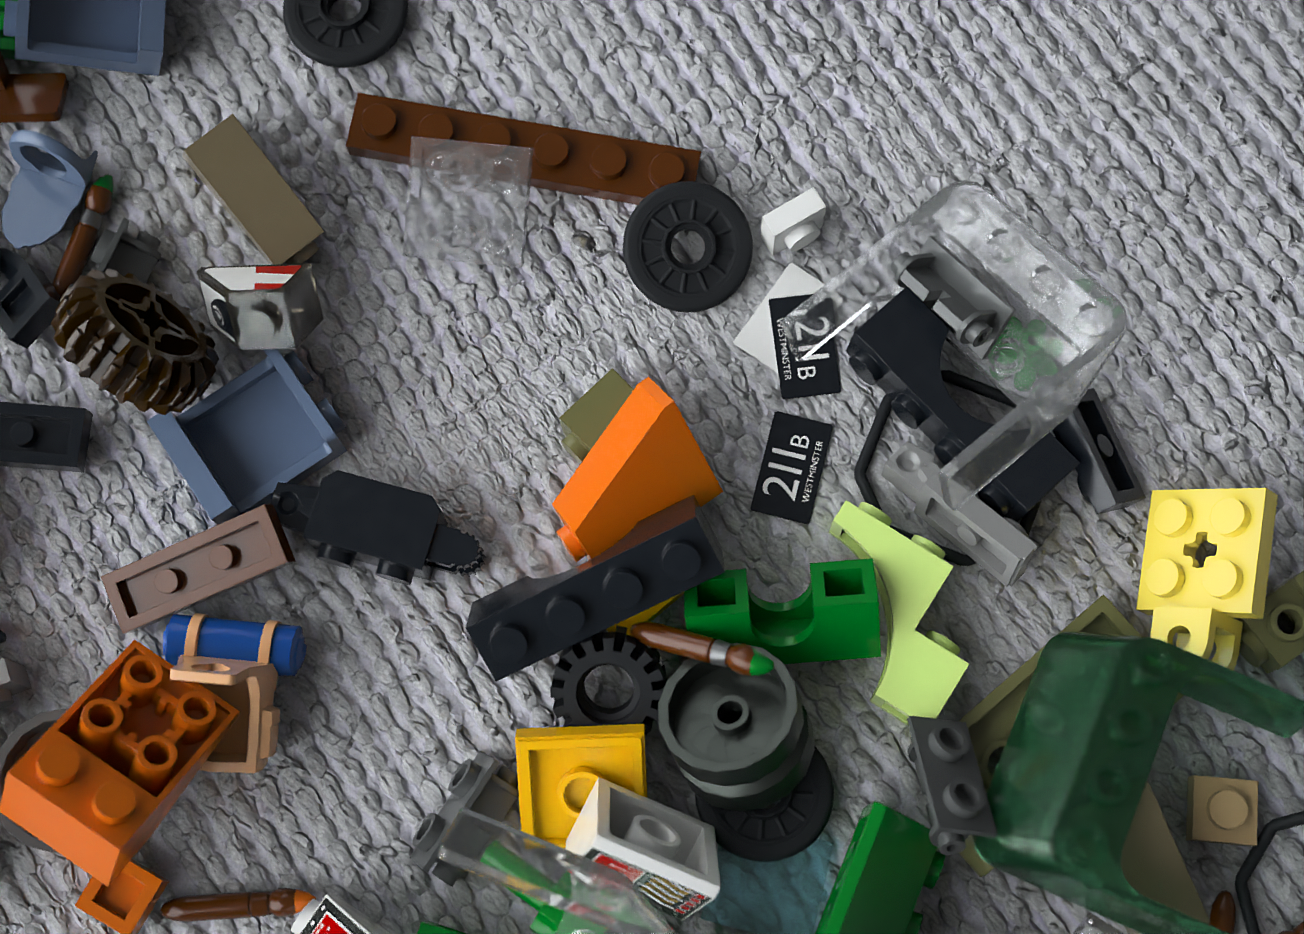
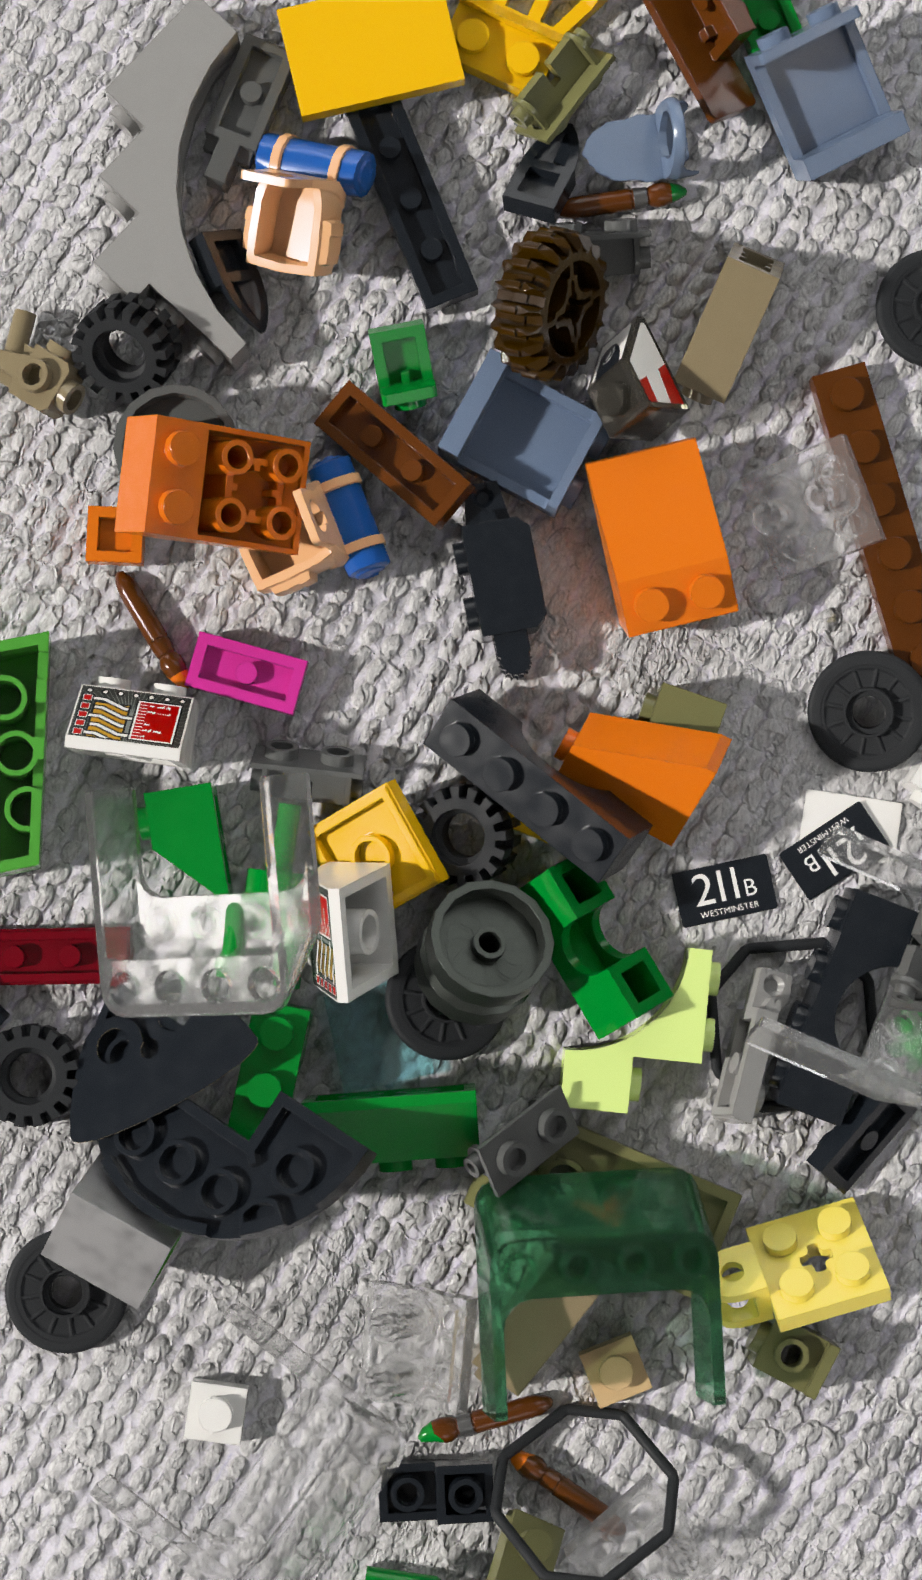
camera: 55 degrees right, 10 degrees up
(116, 517) = (403, 365): none -> green bracket
(332, 829) = (246, 673): none -> dark pink plate
(419, 352) = (661, 537): none -> orange slope
(740, 658) = (530, 895): reddish brown piece -> none

